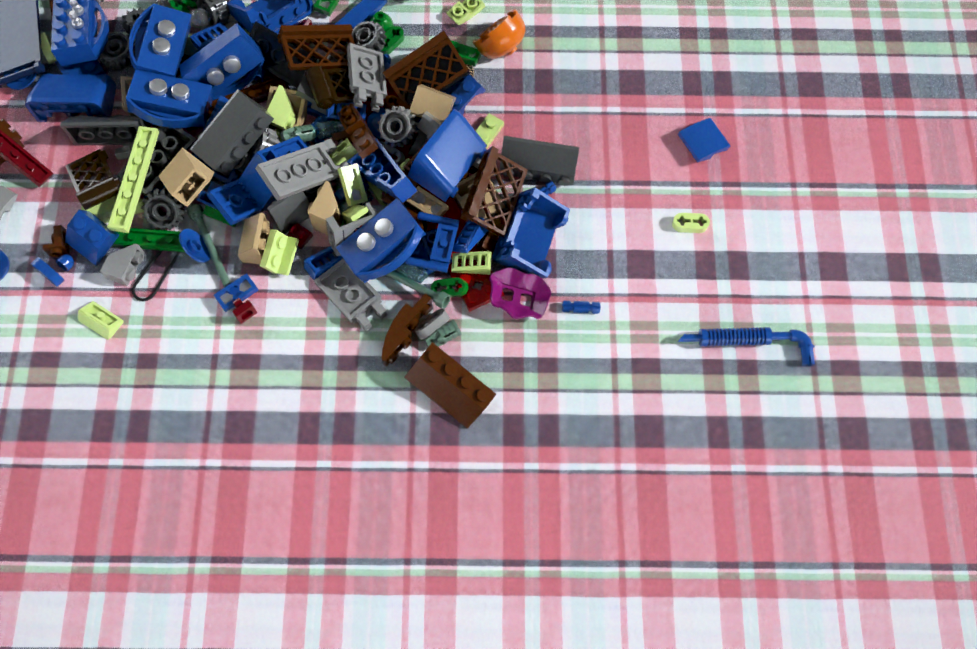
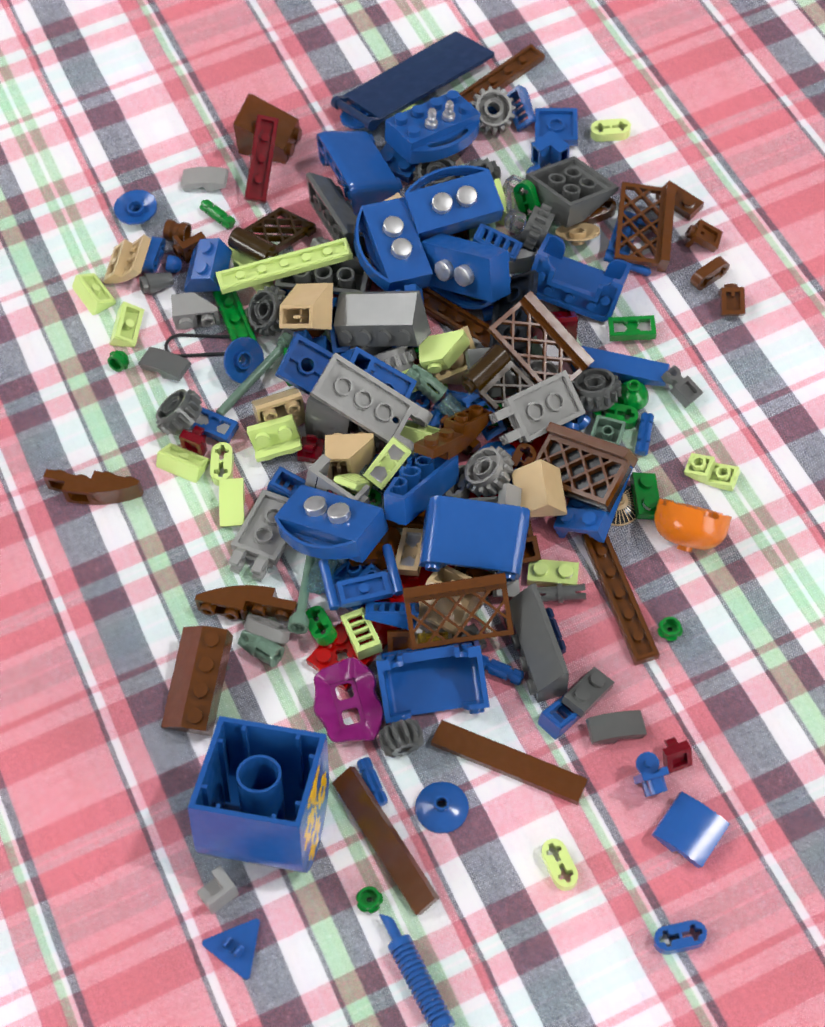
camera: 70 degrees right, 10 degrees down
(34, 246) = (172, 228): none -> reddish brown wheel
(39, 211) = (217, 214): none -> green axle
(39, 292) = (127, 260): none -> tan slope
(50, 332) = (92, 293): none -> yellowish green slope
(74, 282) = (154, 282): none -> dark grey cone
(131, 337) = (118, 360): none -> green plate
(155, 304) = (166, 363): none -> dark grey slope
(213, 308) = (178, 411): none -> dark grey gear
(244, 393) = (98, 490): none -> reddish brown slope
(254, 328) = (182, 462): none -> yellowish green slope
(274, 296) = (216, 463): none -> yellowish green beam
(312, 305) = (231, 502): none -> yellowish green slope
(400, 49) = (608, 429): none -> sand green piece
(414, 31) = (644, 434): none -> blue axle
(506, 130) = (562, 593): none -> dark grey pin
(526, 103) = (621, 600): none -> reddish brown tile
(563, 272) = (401, 737): none -> dark grey gear
(564, 82) = (674, 624): none -> green plate
(579, 367) = (261, 795): none -> blue brick
(587, 154) = (587, 691): none -> dark grey plate
(591, 182) = (553, 722): none -> blue slope
(606, 220) = (509, 762): none -> reddish brown tile
(613, 437) = (218, 891): none -> light grey panel
(615, 147) = (614, 726): none -> dark grey slope
(617, 281) = (446, 818): none -> blue dish
(627, 315) = (385, 841): none -> reddish brown tile
(652, 123) = (677, 755): none -> dark red tile
(655, 442) = (236, 947): none -> blue piece
(663, 339) = (364, 894): none -> green plate
(664, 141) = (651, 776): none -> blue hips
(762, 179) = (679, 930): none -> blue beam

